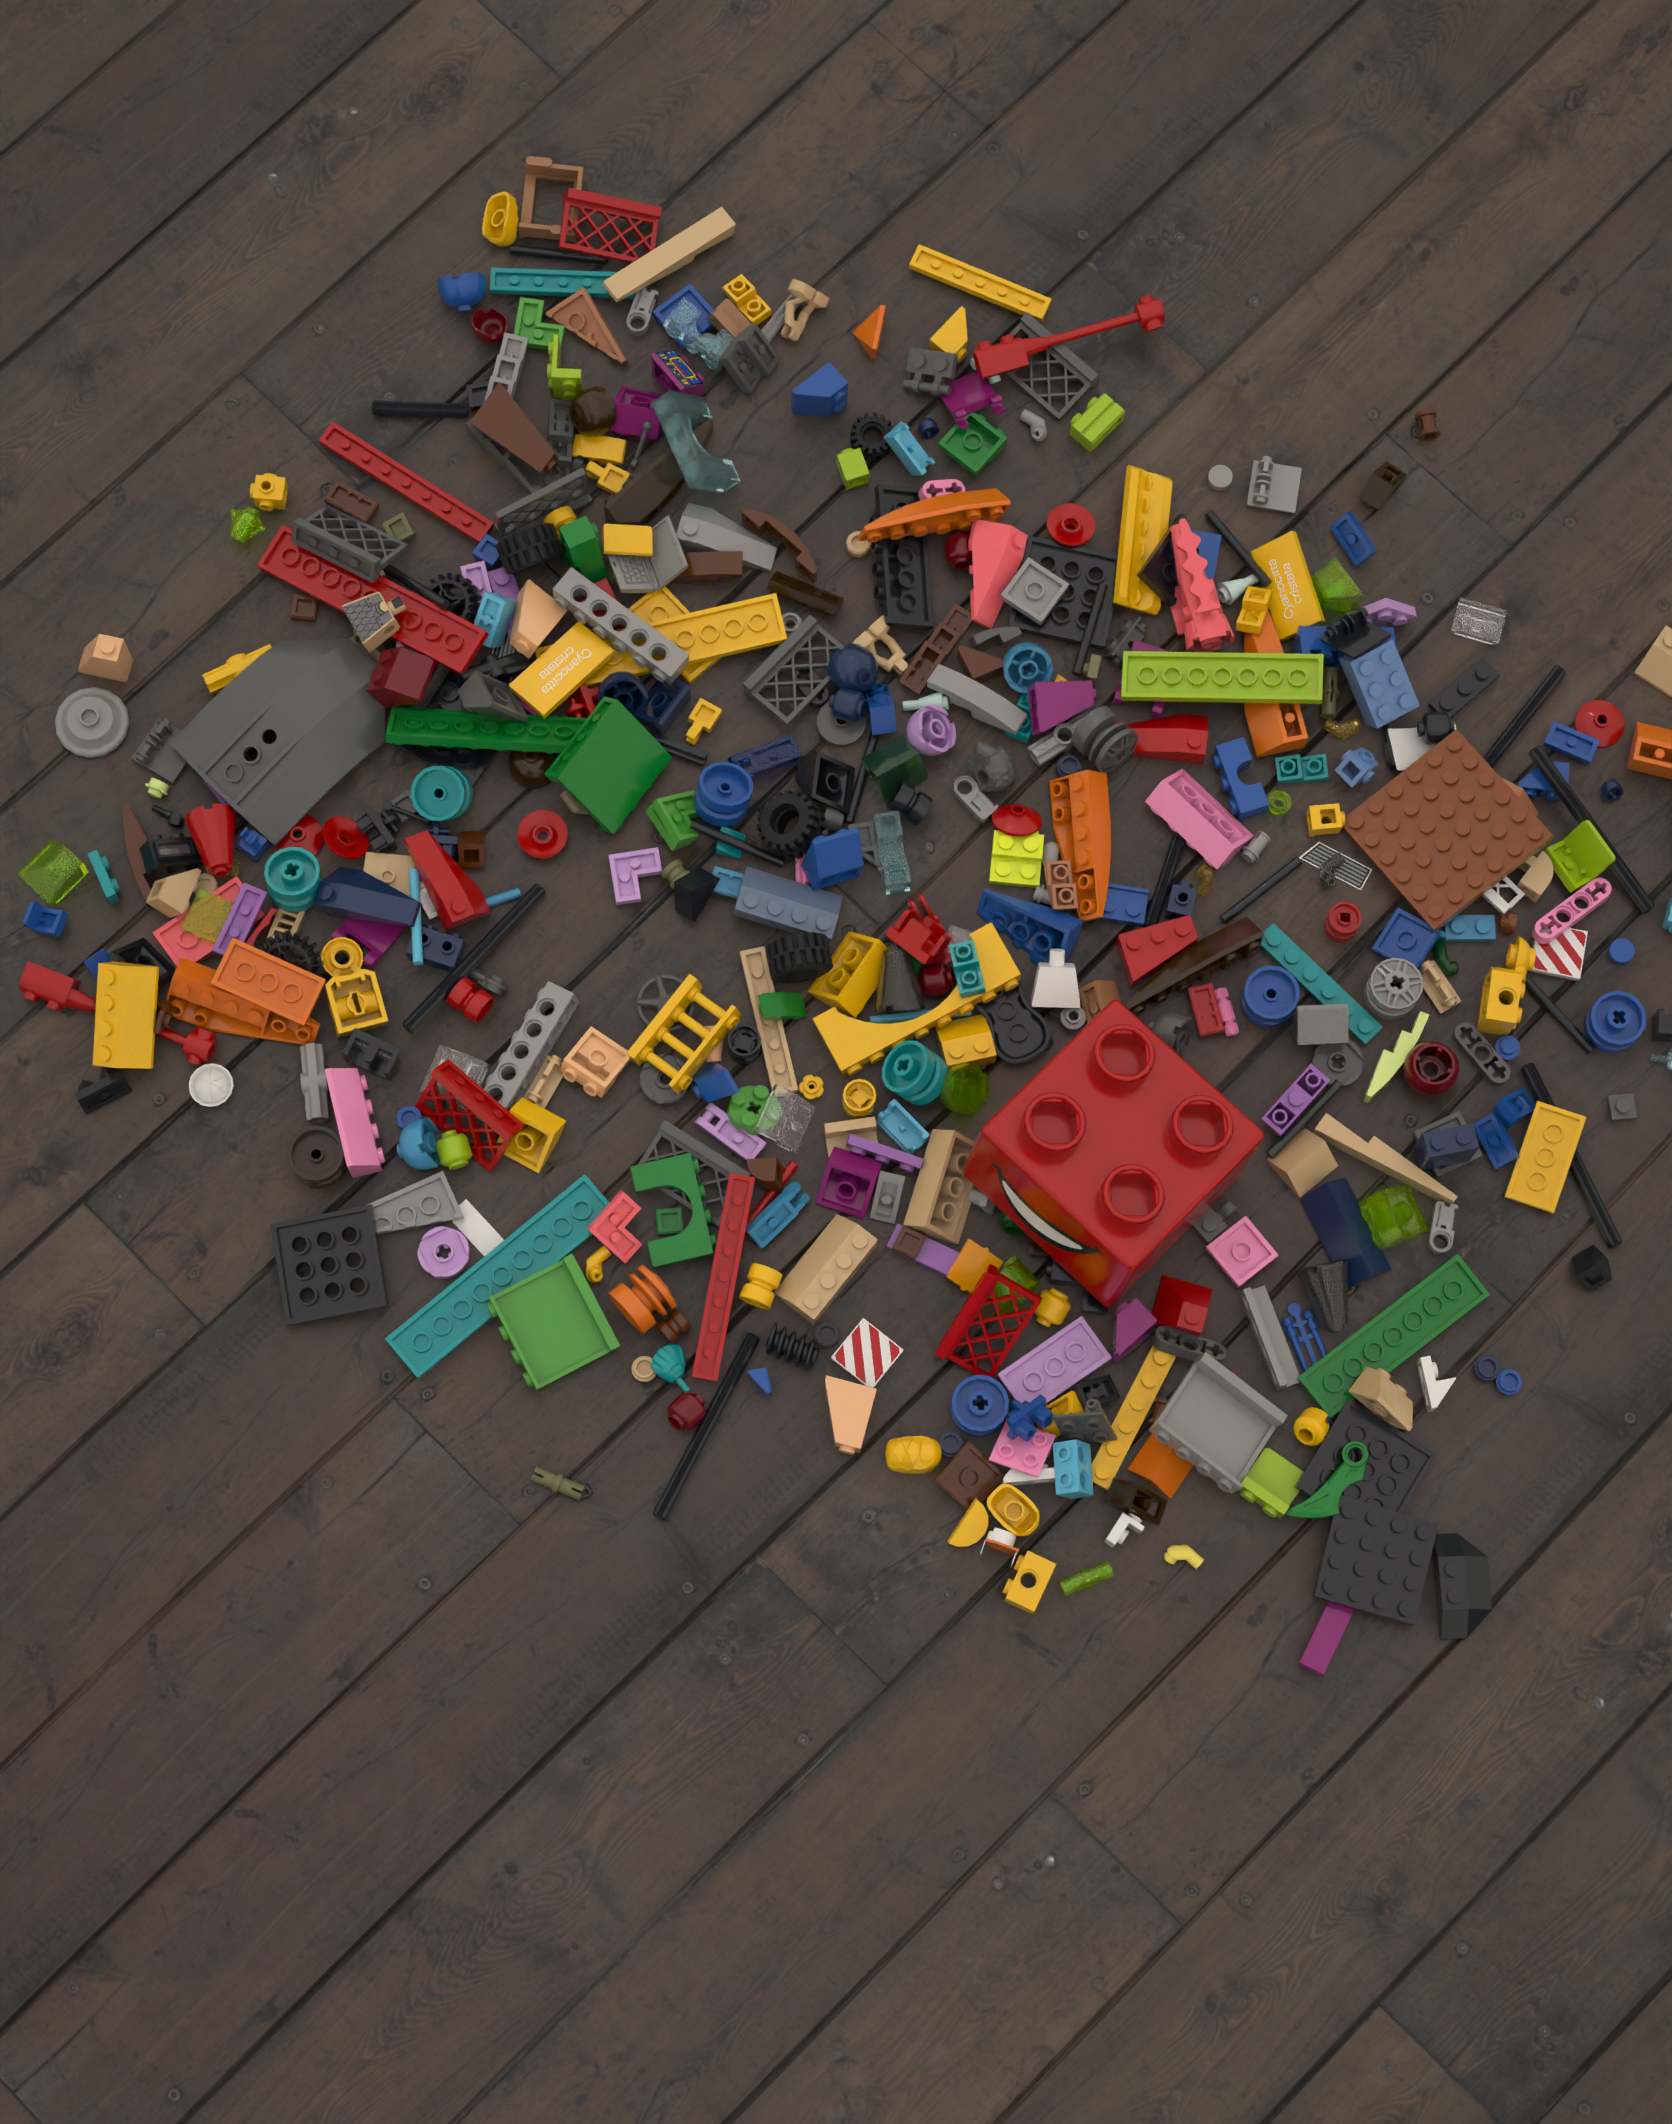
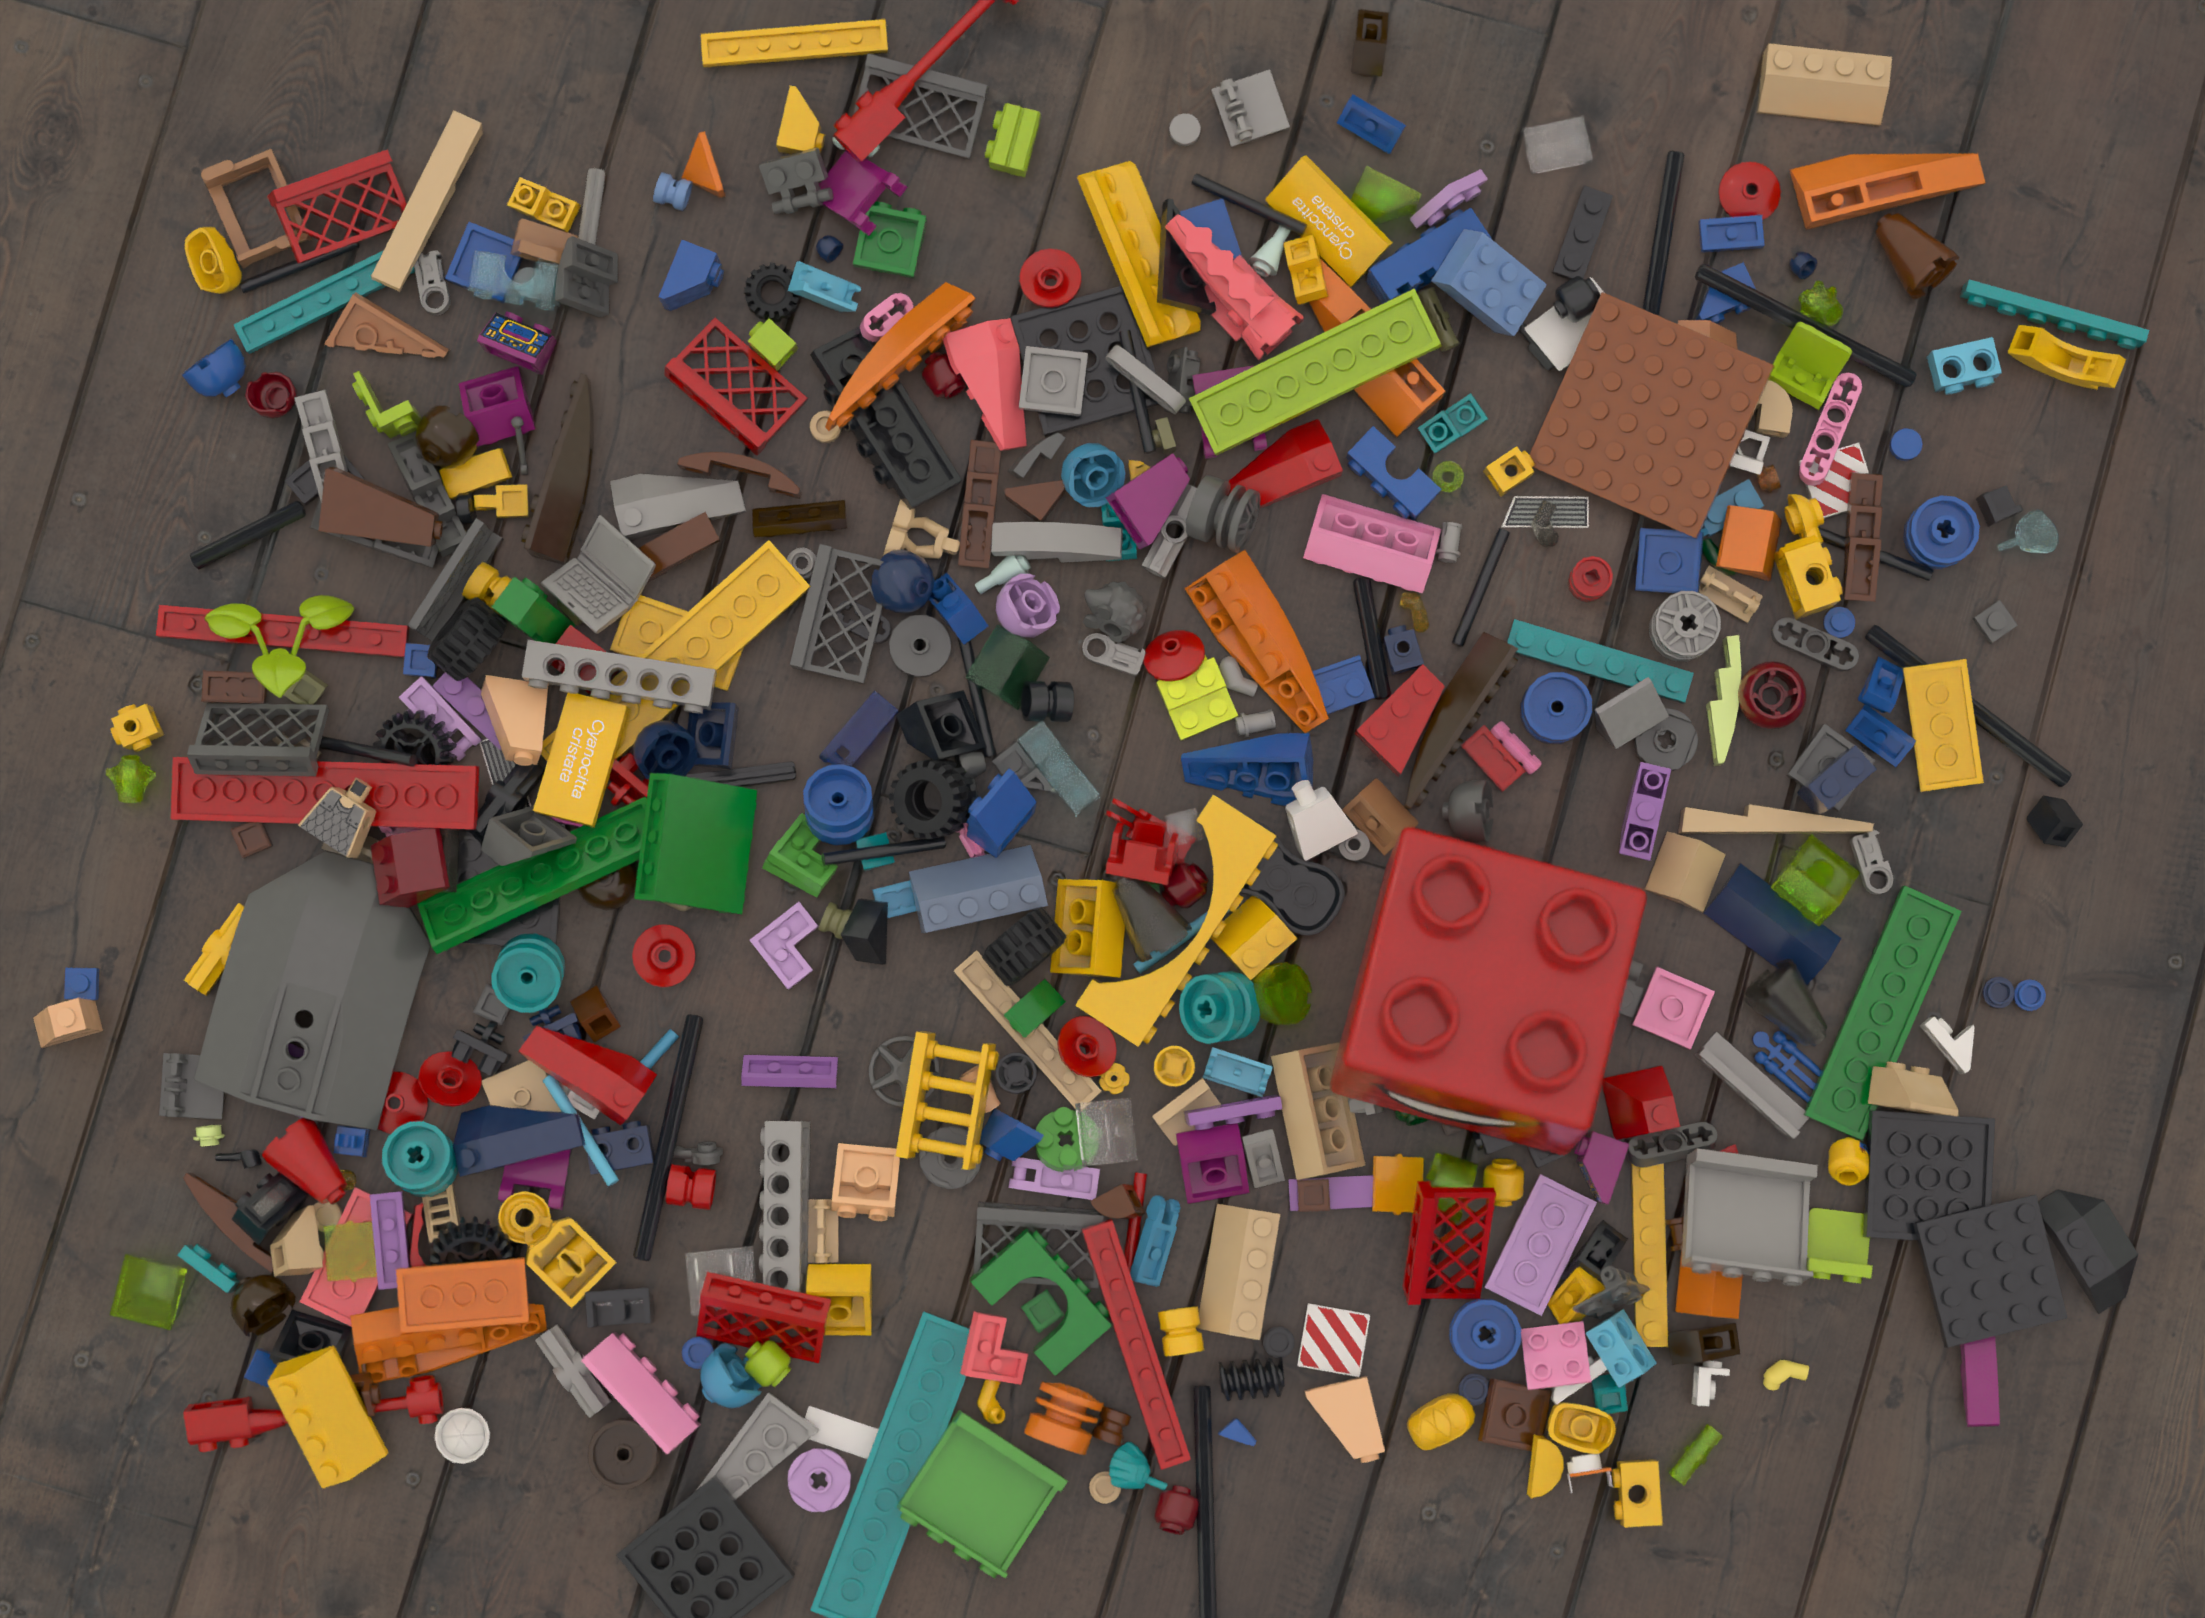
camera: 25 degrees left, 10 degrees up
(45, 920) = (173, 1352): blue bracket -> none
(92, 722) = (92, 1098): light grey piece -> none
(107, 1089) = (342, 1516): black tile -> none
(125, 919) = (260, 1303): none -> dark brown cylinder
(134, 640) = (81, 983): none -> blue plate
(388, 806) = (475, 1016): black hinge -> none
(391, 500) = (278, 668): none -> lime plant
(494, 617) = (472, 739): medium azure hinge -> none
(530, 324) = (319, 373): bright green plate -> none
(585, 959) = (789, 1071): none -> medium lavender plate
(627, 540) = (570, 569): yellow slope -> none
(678, 417) = (602, 442): clear light blue arch -> none
(702, 718) = (766, 724): yellow plate -> none
(793, 494) = (717, 405): none -> red fence
(804, 293) = (605, 168): tan piece -> none
(812, 1049) = (1096, 1040): none -> red dish
(841, 335) = (672, 191): none -> medium blue wheel
(848, 705) = (920, 626): dark blue head -> none
(967, 968) = (1215, 862): teal slope -> none
(1025, 1415) = (1539, 1322): blue hips -> none
(1036, 423) = (948, 177): light grey arm -> none
(1047, 1501) = (1608, 1395): none -> teal slope
(1059, 885) = (1262, 706): nougat slope -> none
(1068, 765) = (1198, 560): dark blue plate -> none
(1099, 621) = (1145, 379): none -> light grey beam
(1304, 1119) = (1664, 823): pearl dark grey bar -> none
(1326, 1500) = (1906, 1235): green piece -> none
(1344, 729) = (1475, 353): clear yellow arm -> none
(1354, 634) = (1438, 247): black hinge -> none
(1357, 766) = (1513, 391): medium blue brick -> none
(1472, 956) = (1749, 541): none -> orange slope
(1556, 995) = (1863, 536): none -> reddish brown slope
(1610, 821) = (1821, 304): none -> clear neon green rock

